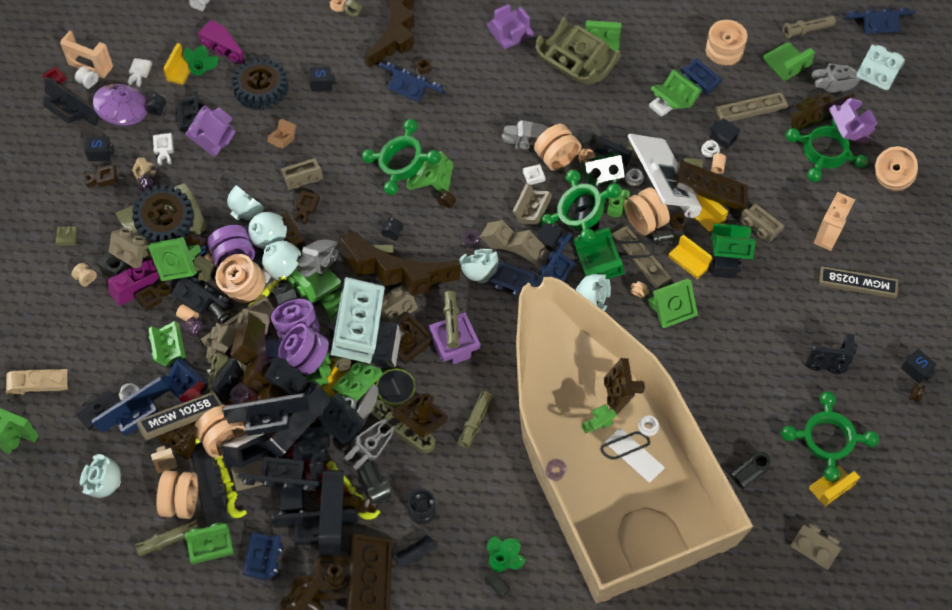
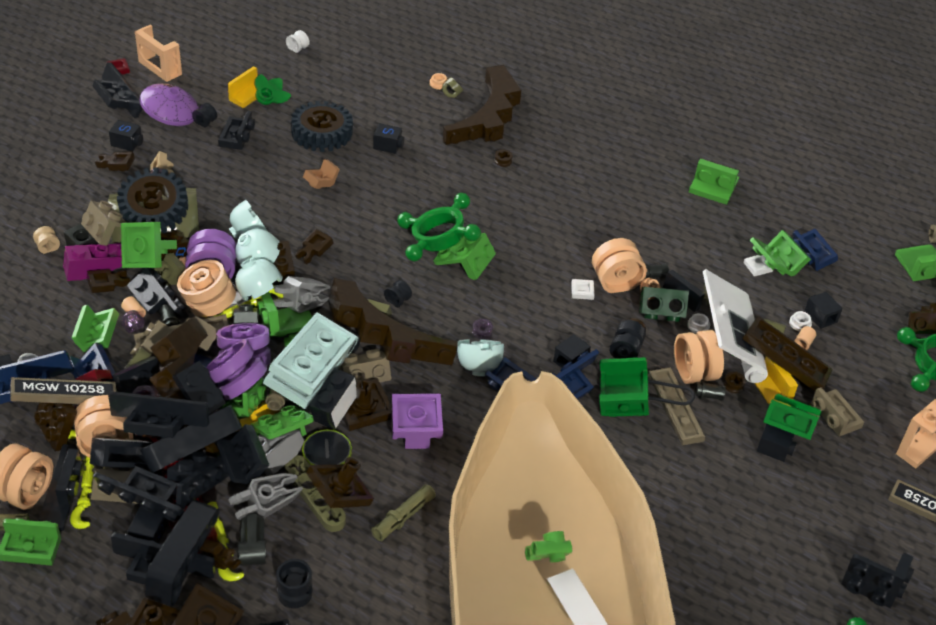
camera: 15 degrees right, 15 degrees down
(66, 236) = (49, 202): olive tile -> none
(86, 77) = (149, 74): white wheel -> none
(139, 69) = (205, 82): white plate -> none
(163, 146) = (192, 151): white plate -> none
(164, 459) = (29, 437): tan tile -> none
(211, 130) = (248, 148): medium lavender panel -> none
(218, 39) = (299, 78): magenta slope -> none
(262, 556) = (79, 576): dark blue bracket -> none
(302, 173) = (324, 216): dark tan bracket -> none
(407, 85) = (480, 170): dark blue bracket -> none
(446, 199) = (472, 283): dark brown bush -> none
(451, 312) = (427, 376): olive pin -> none
(510, 26) = (612, 149): medium lavender panel -> none
(523, 134) = (582, 245): light grey hinge -> none
(524, 243) = (540, 347): dark tan arch -> none
(531, 205) = (565, 315): dark tan bracket -> none
(556, 463) = (461, 583): bush -> none
(570, 196) = (607, 322): green piece -> none
(577, 54) = (680, 190): olive piece -> none
(595, 288) = (608, 416): light aqua cylinder -> none
(616, 205) = (665, 342): bright green plate -> none
(620, 385) = (590, 517): dark brown plate -> none
(628, 452) = (564, 591): black piece -> none
(639, 289) = (660, 436): light nougat plate -> none
(648, 420) = (612, 570): white plate -> none
(674, 303) = (696, 461): bright green bracket -> none
(691, 257) = (736, 422): yellow panel -> none
(726, 42) = (855, 223): light nougat wheel -> none
(752, 107) = (867, 295): dark tan tile -> none

